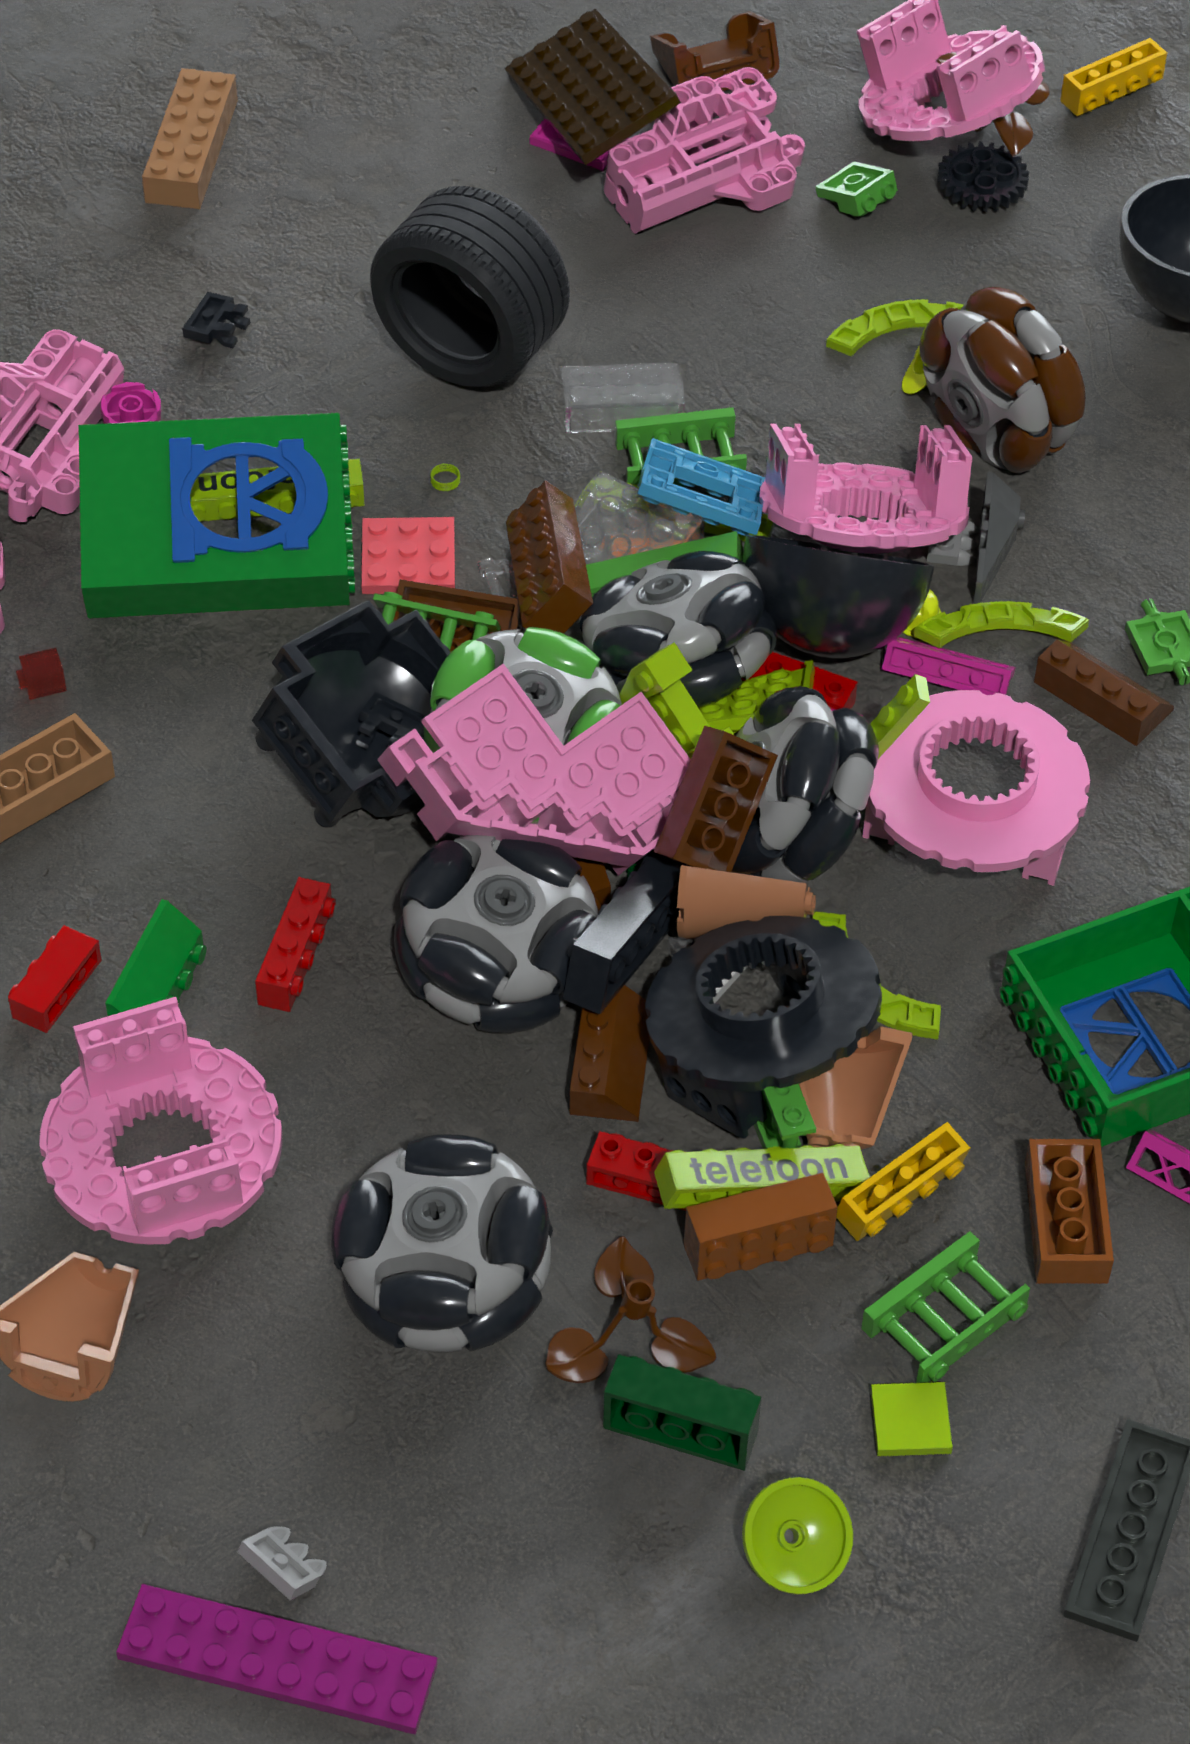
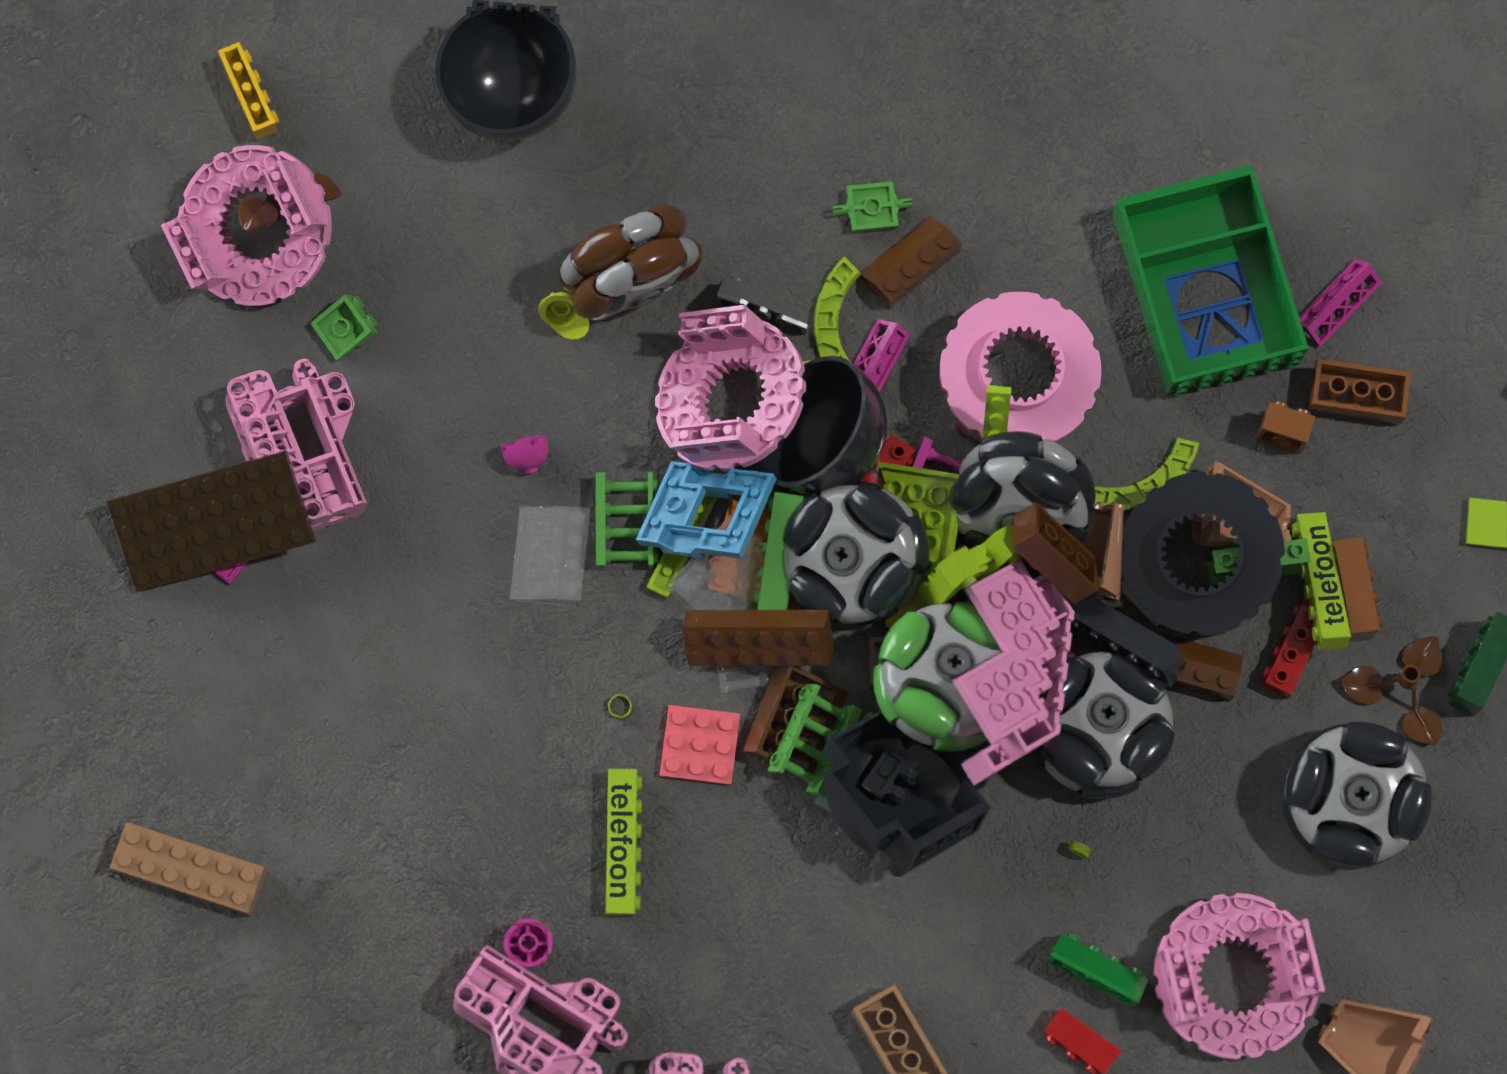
camera: 85 degrees left, 25 degrees up
(41, 674) = (790, 1035): clear red brick -> none
(155, 557) = (659, 941): green panel -> none
(209, 319) = (413, 874): black plate -> none
(294, 944) = (1073, 869): red brick -> none
(327, 938) = (1079, 849): none -> lime axle
(470, 286) = (476, 653): black tyre -> none
(743, 350) = (526, 453): none -> dark pink cylinder
(749, 44) = (157, 408): reddish brown windscreen -> none
(882, 320) = (493, 324): lime tile -> none
(902, 1181) = (1325, 491): yellow brick -> none
(937, 1277) = (1408, 505): bright green fence -> none
(983, 176) = (363, 212): black gear -> none
(989, 1117) = (1285, 427): none -> dark orange brick

